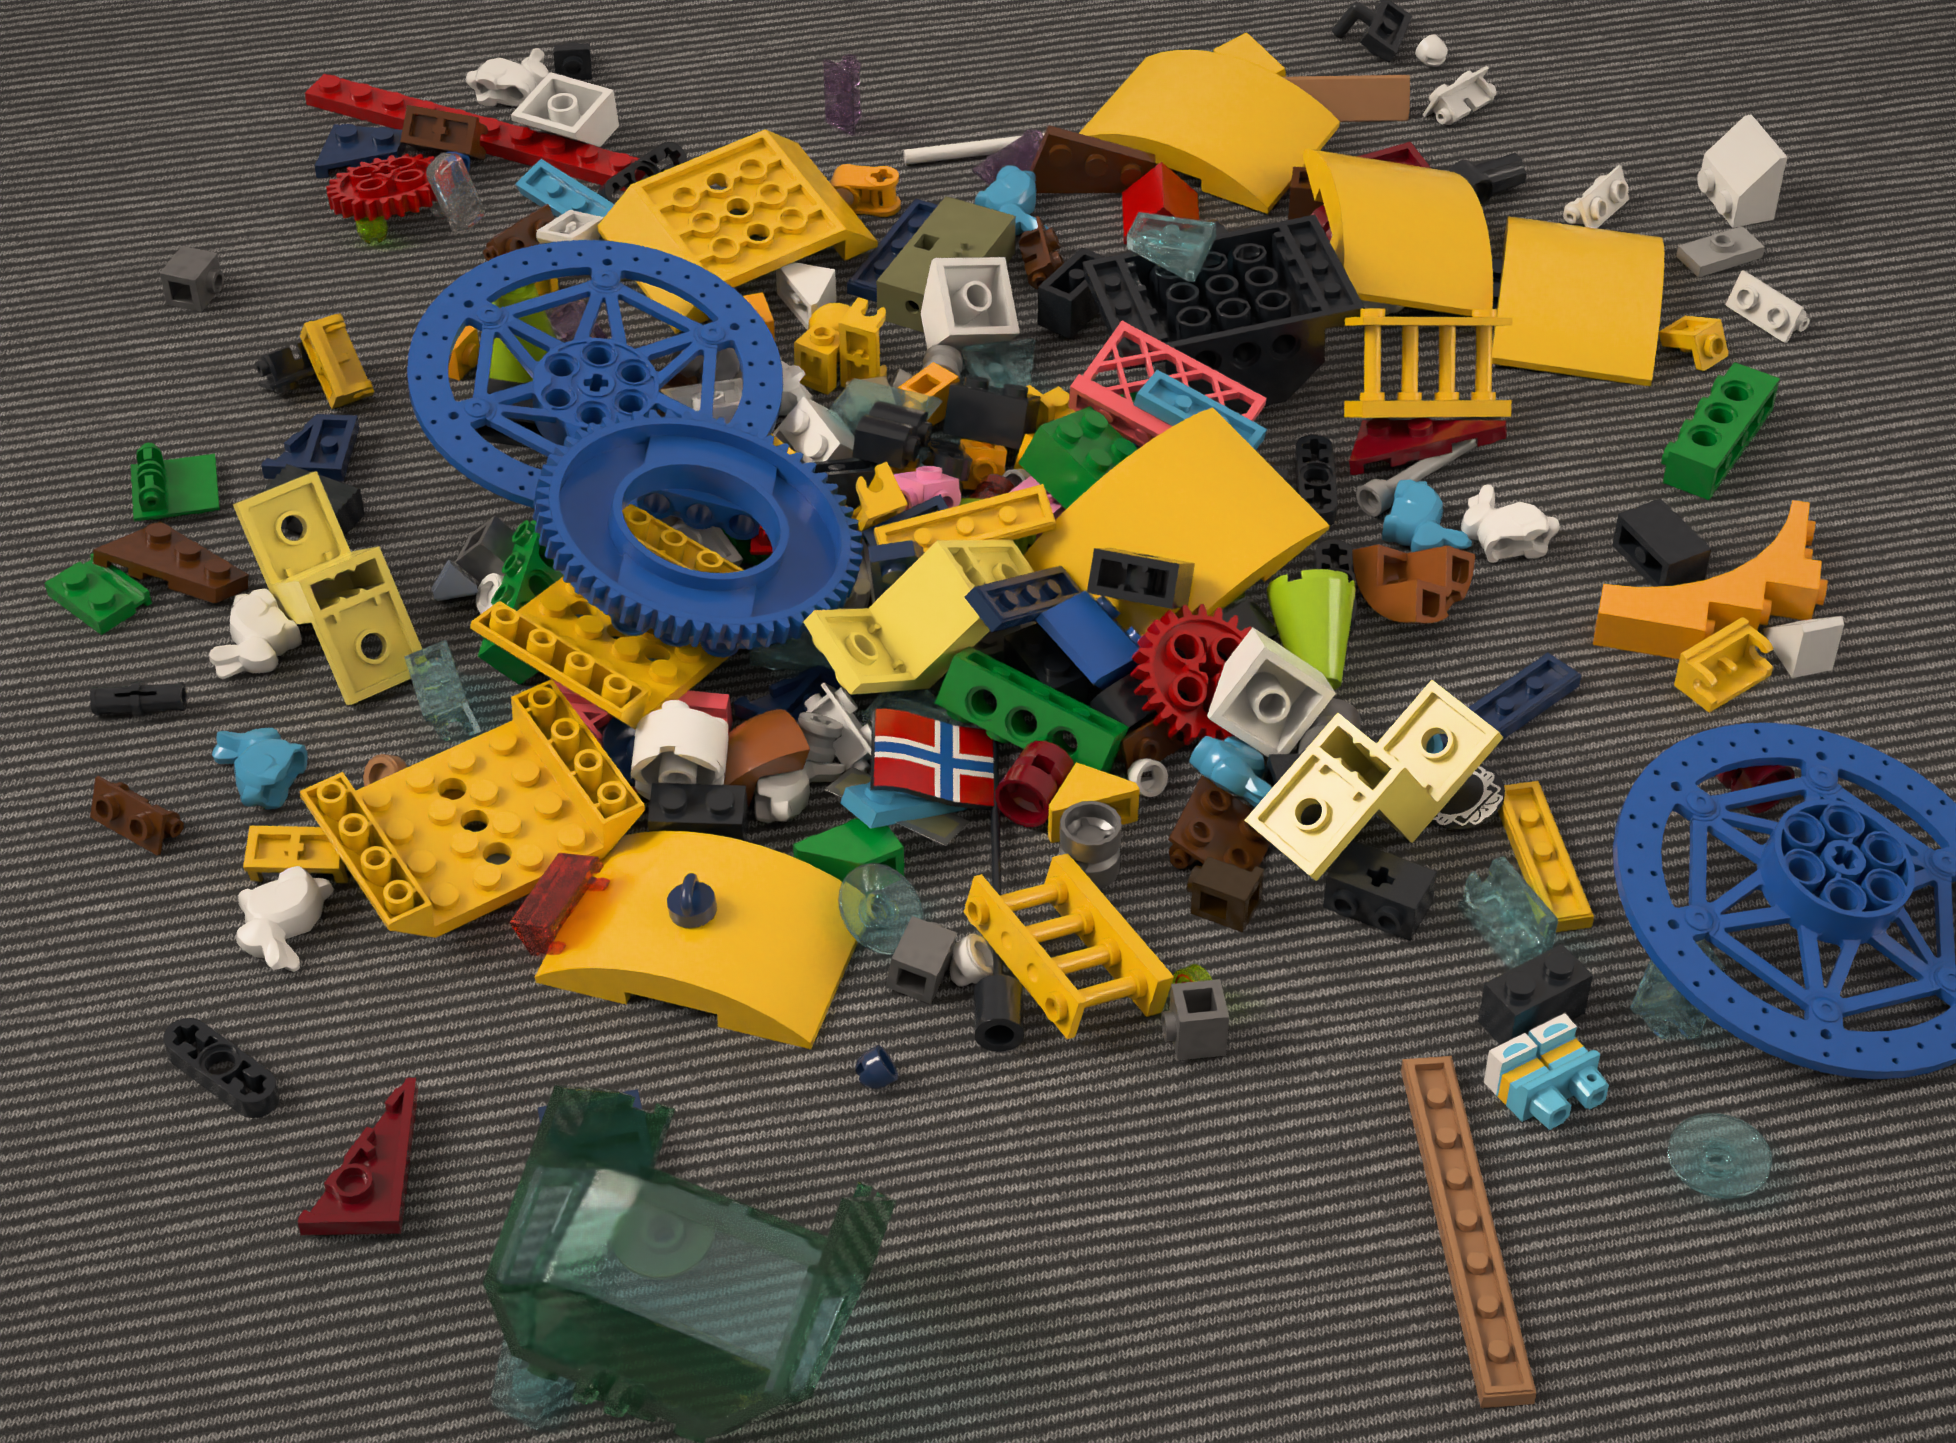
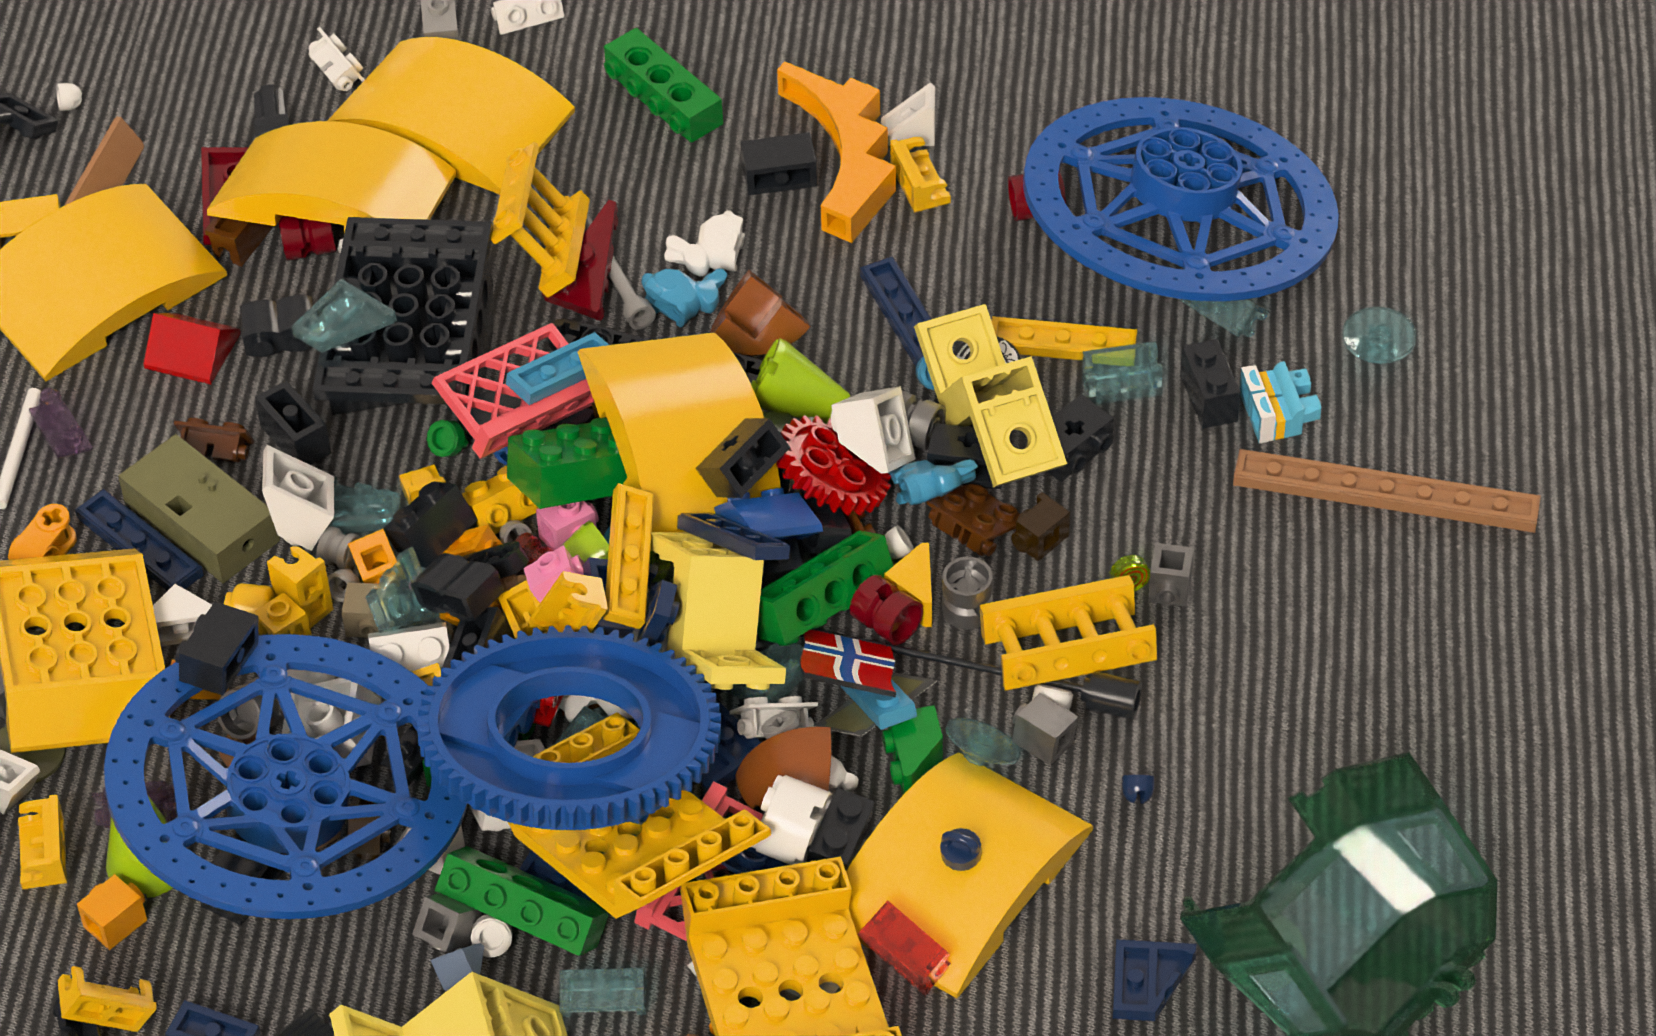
camera: 70 degrees left, 5 degrees up
(709, 276) = (217, 648): none -> black brick
(1013, 194) = (121, 441): dark azure animal -> none
(1086, 164) = (109, 371): reddish brown wing -> none
(1451, 101) = (145, 99): white hinge -> none
(1701, 336) = (546, 59): yellow bracket -> none

